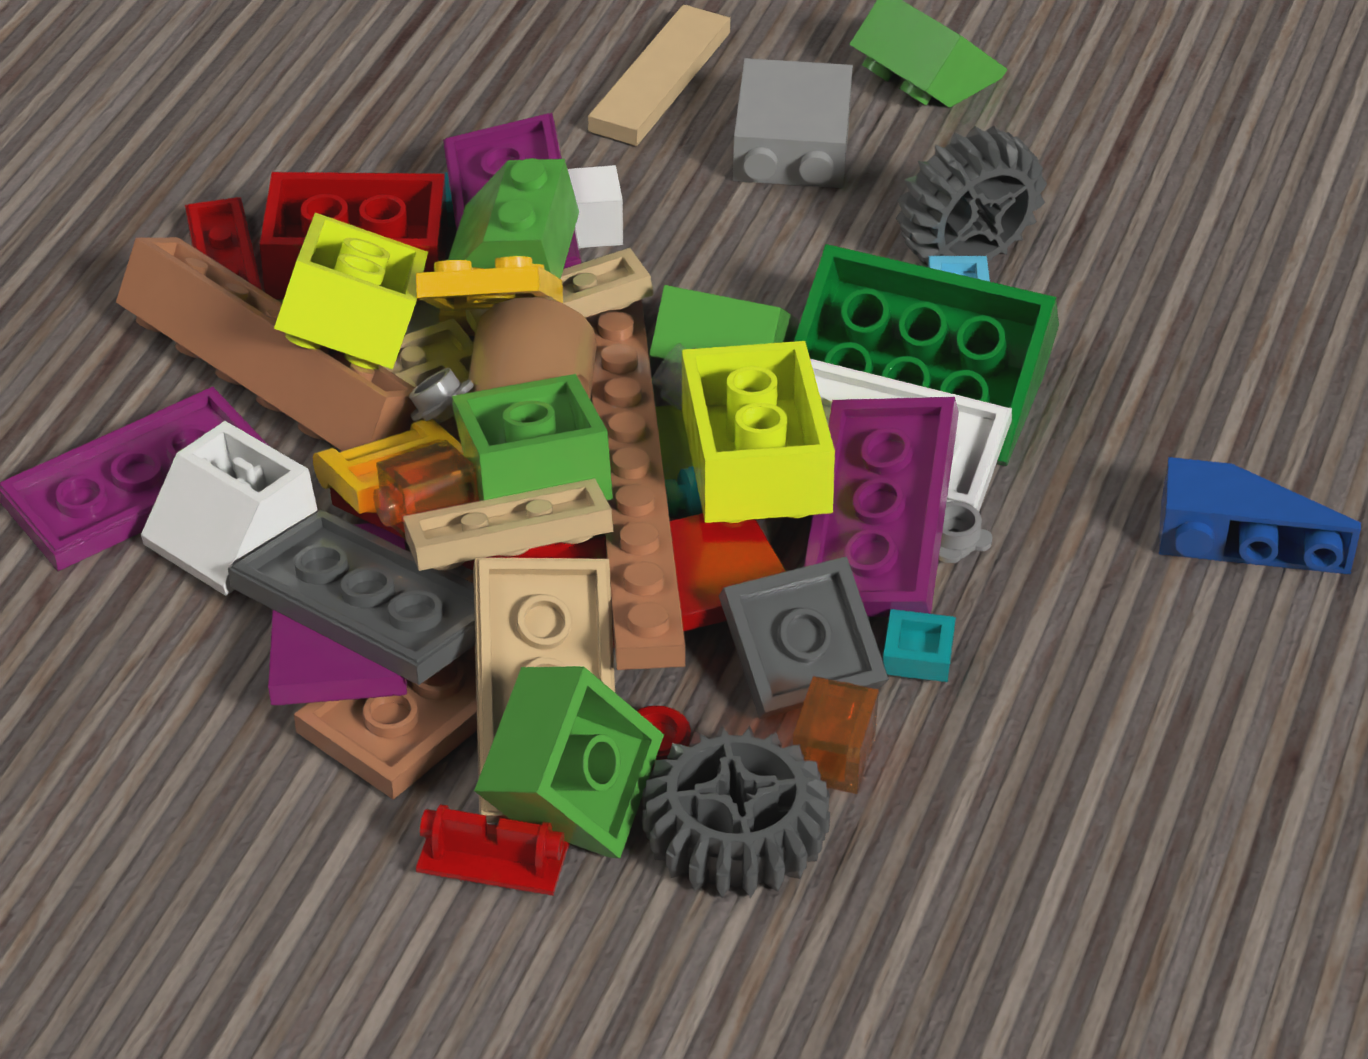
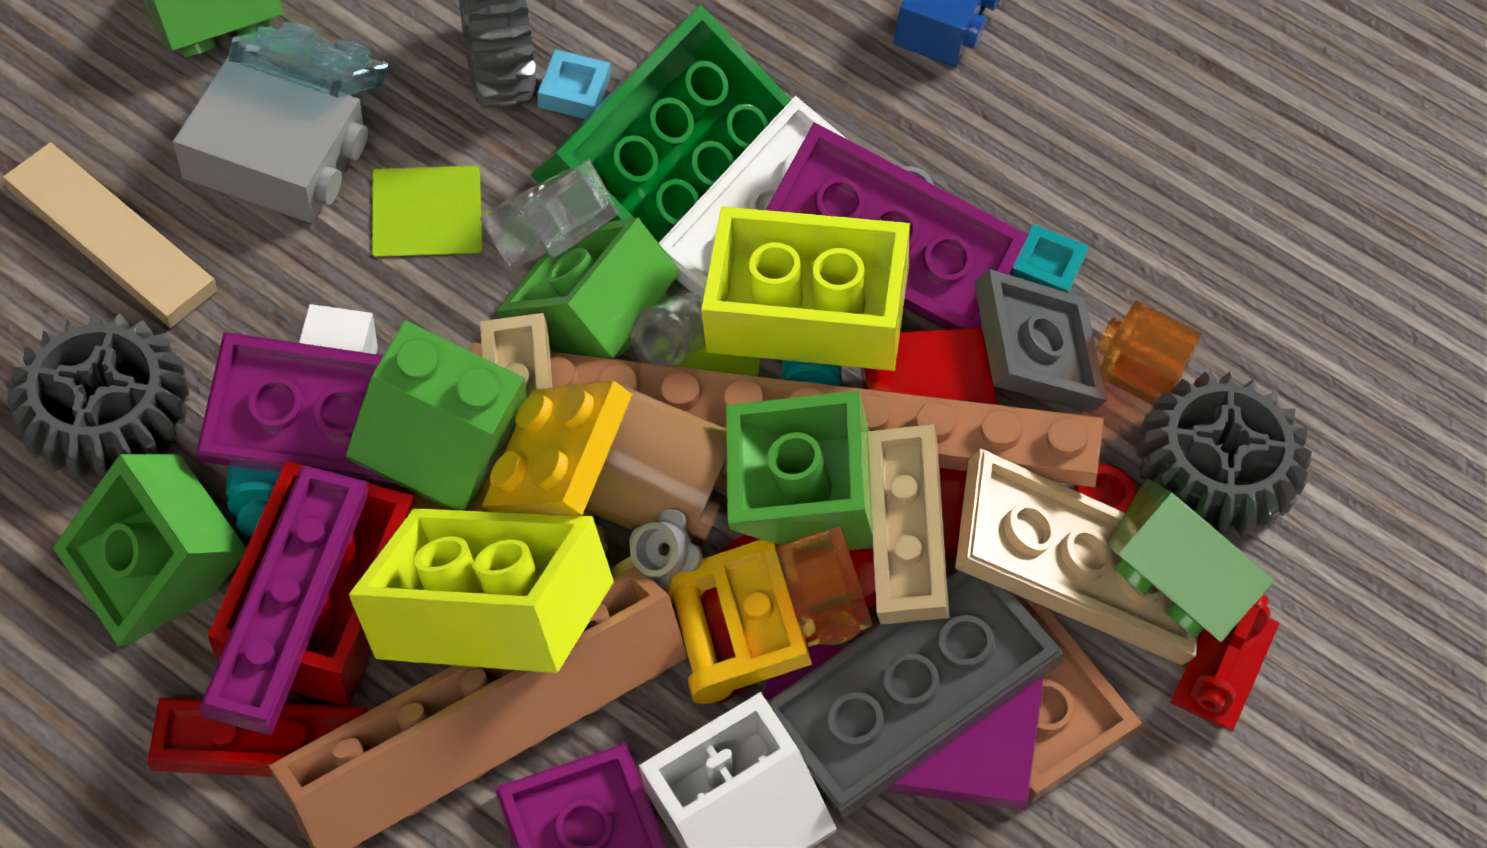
camera: 80 degrees left, 15 degrees up
(301, 193) = (285, 601): none -> magenta tile
(391, 140) = (148, 545): none -> bright green slope
(491, 88) = (86, 379): none -> dark grey gear
(774, 273) = (550, 215): none -> clear slope
(776, 239) = (426, 211): none -> lime sticker
(876, 112) = (302, 59): none -> clear light blue plate

